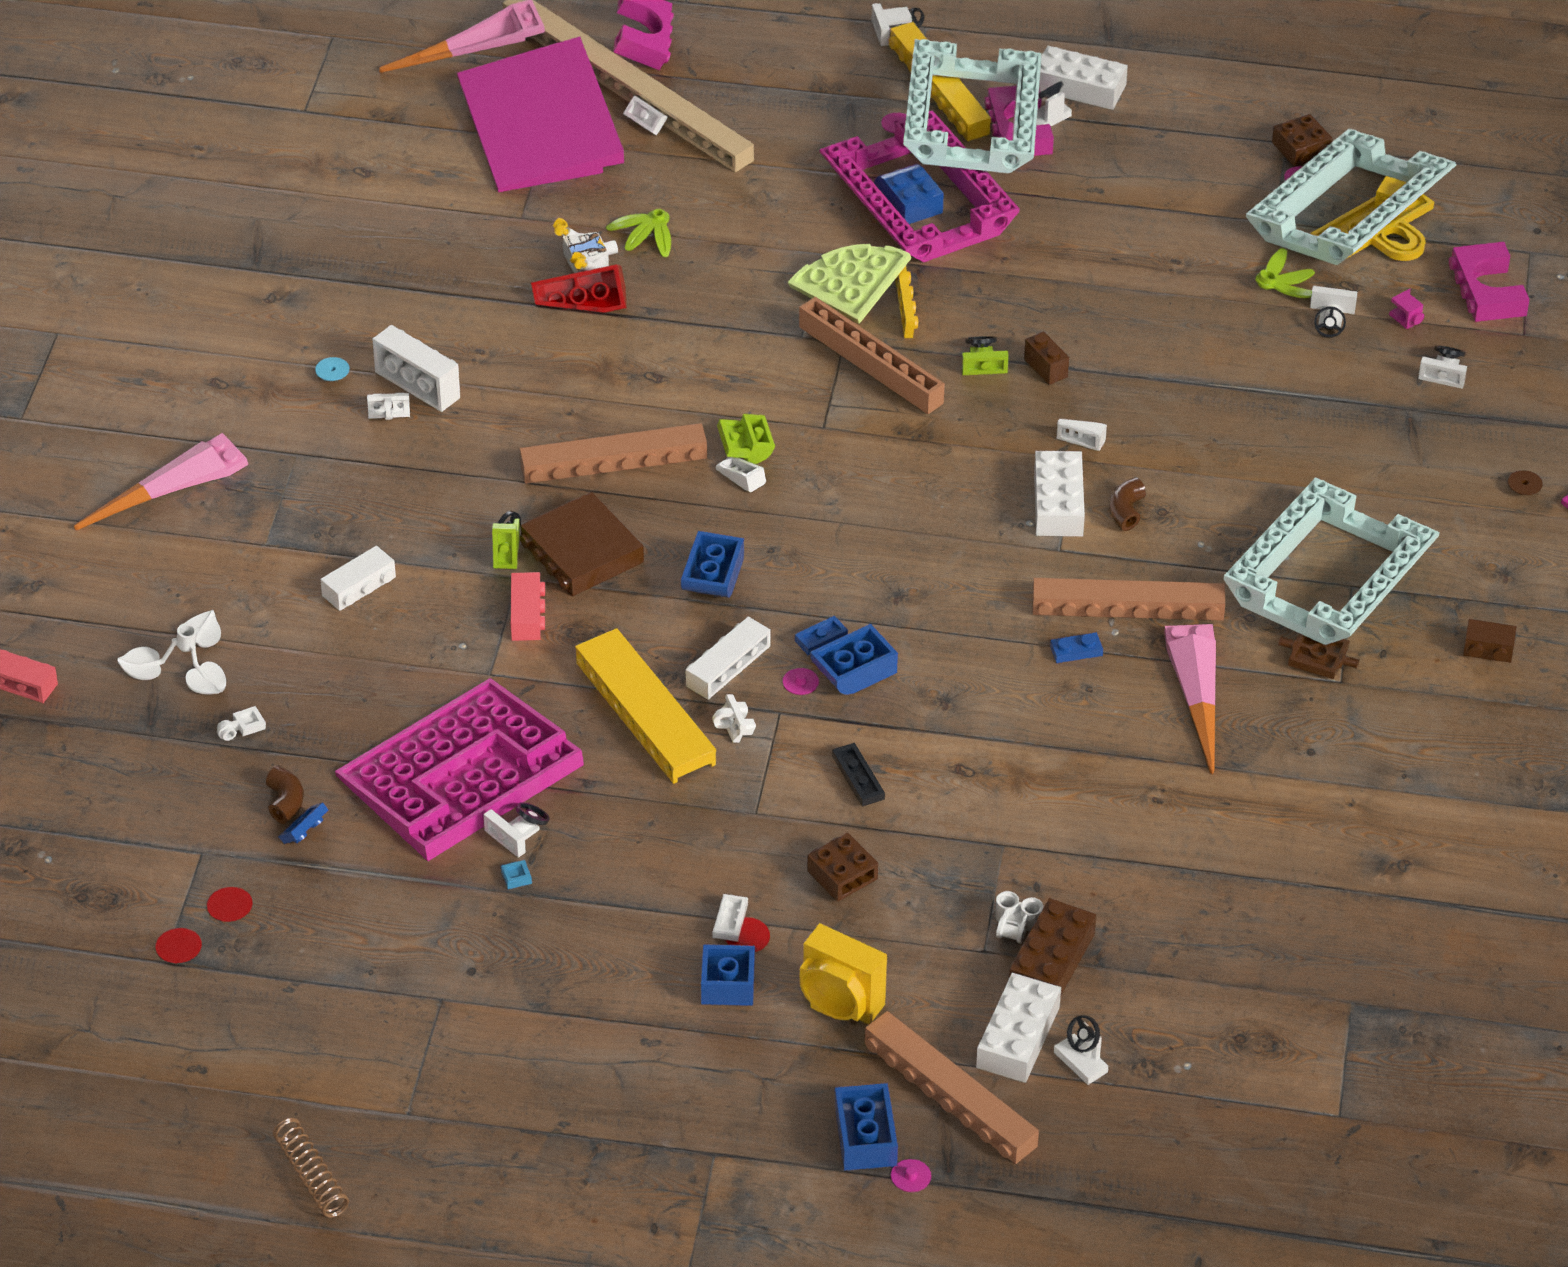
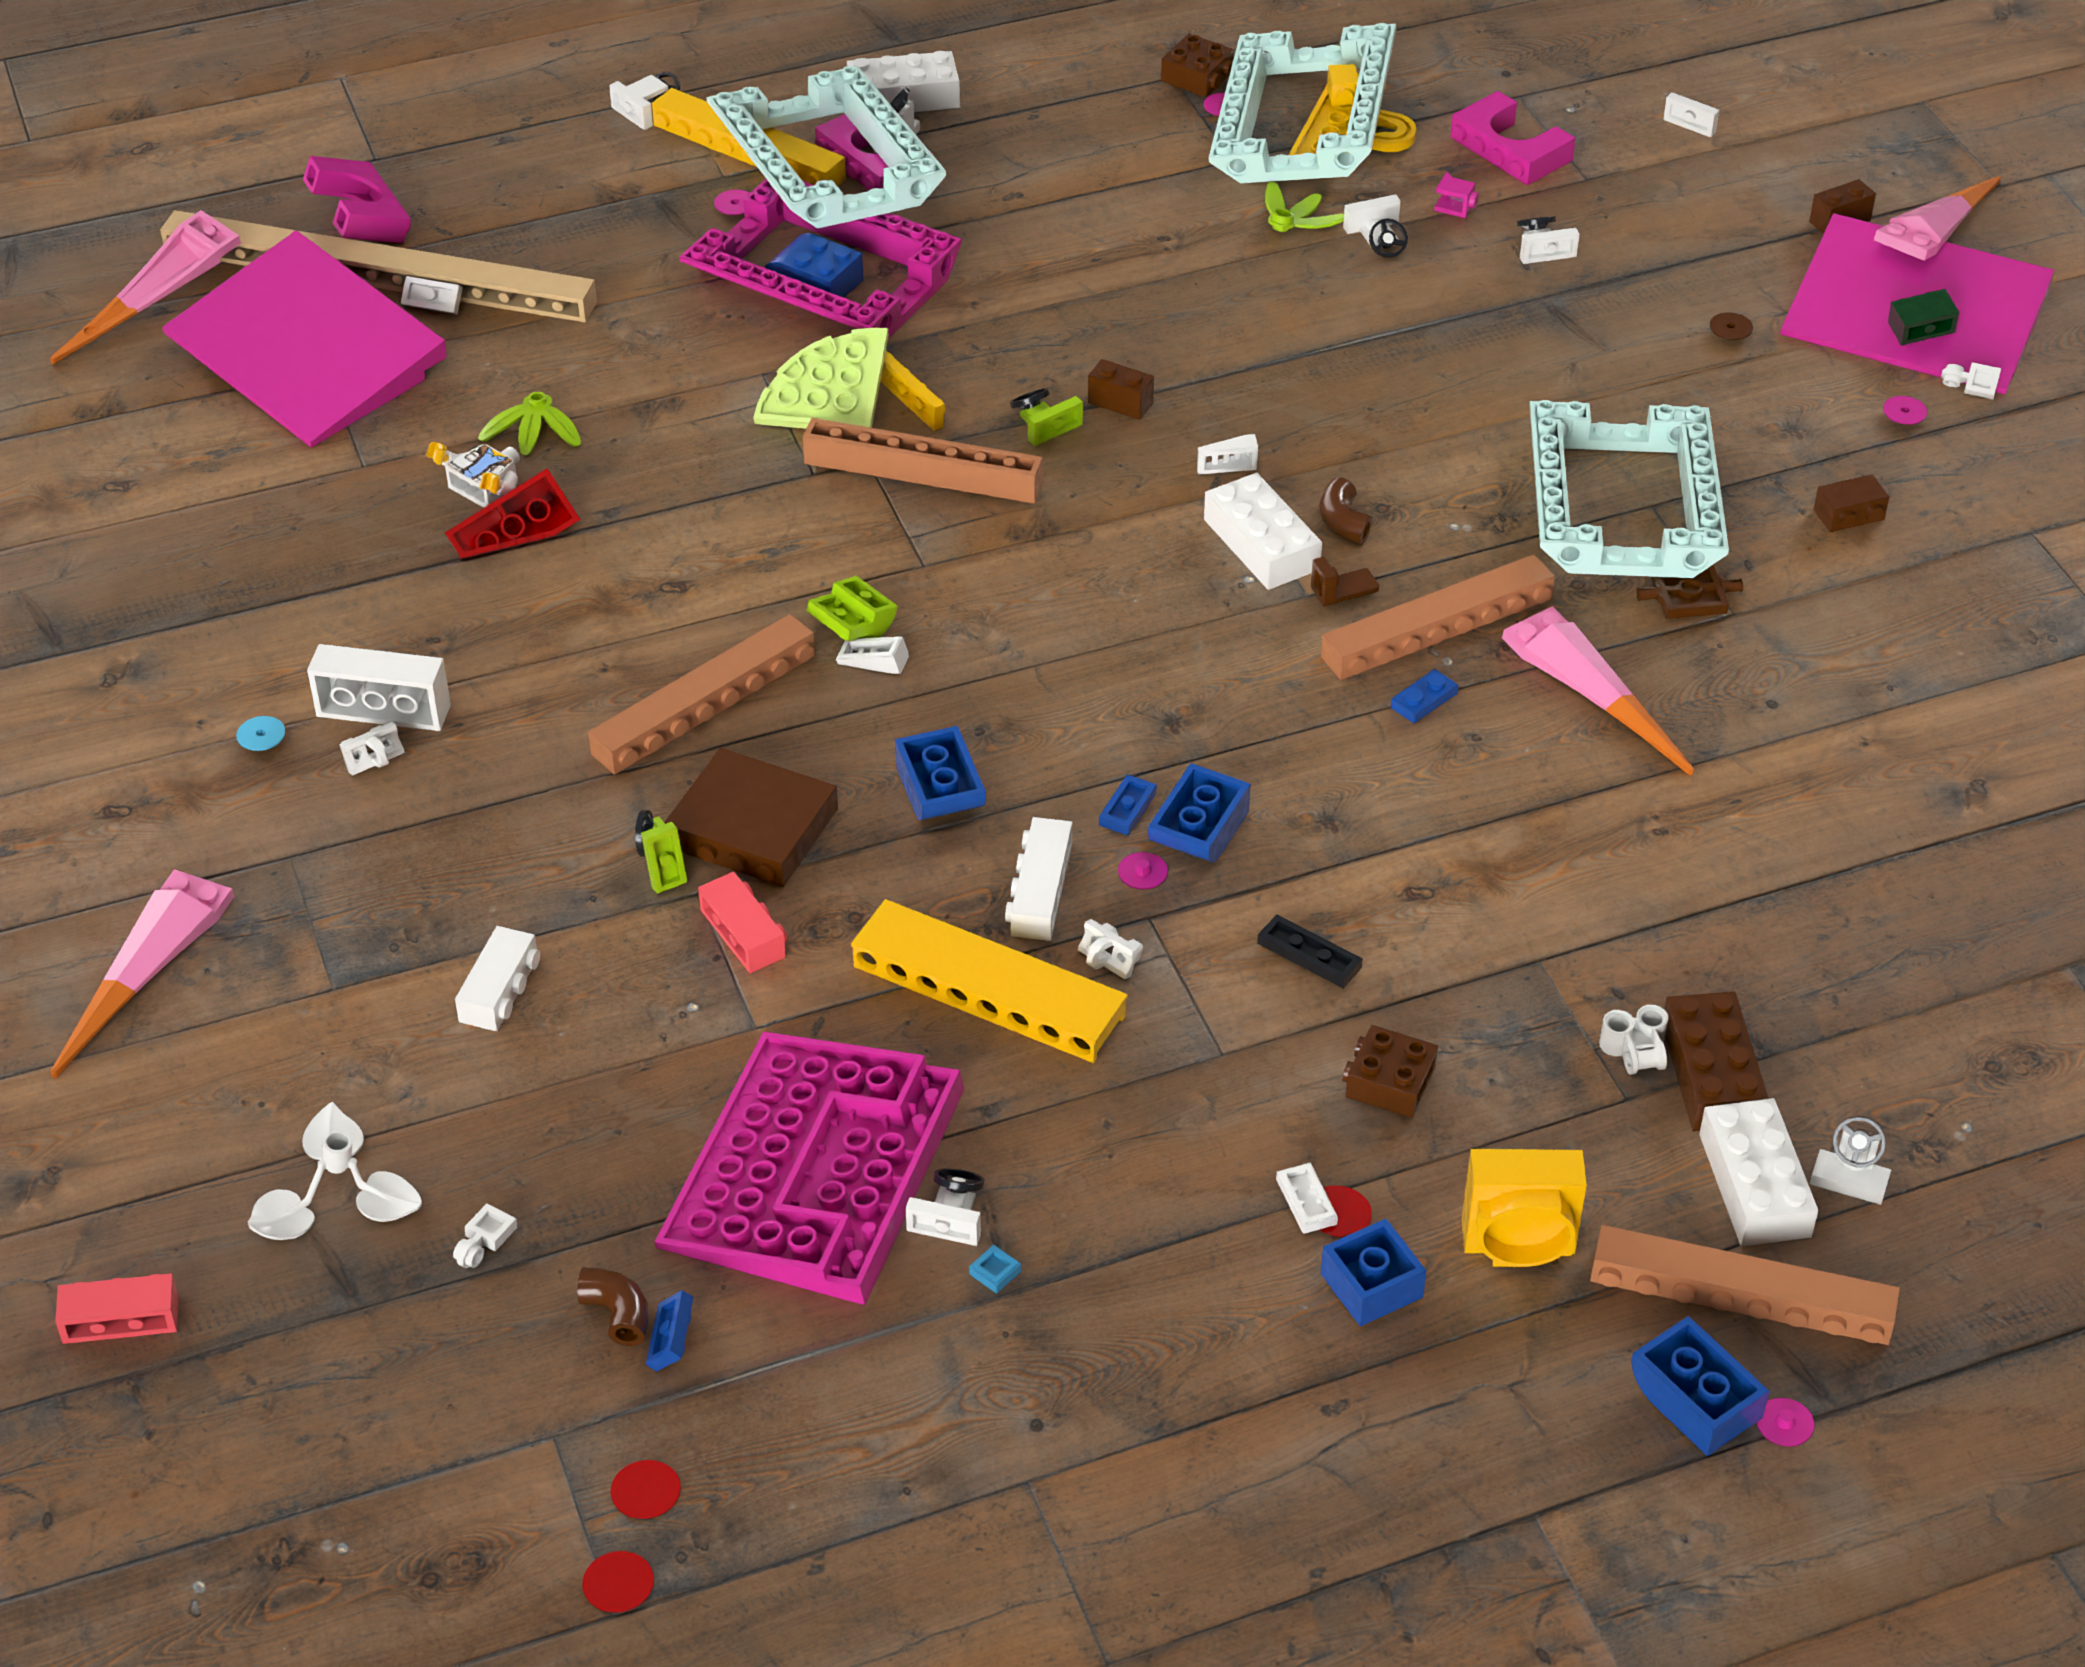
camera: 30 degrees left, 0 degrees up
(1082, 553) = (1335, 588): none -> reddish brown bracket

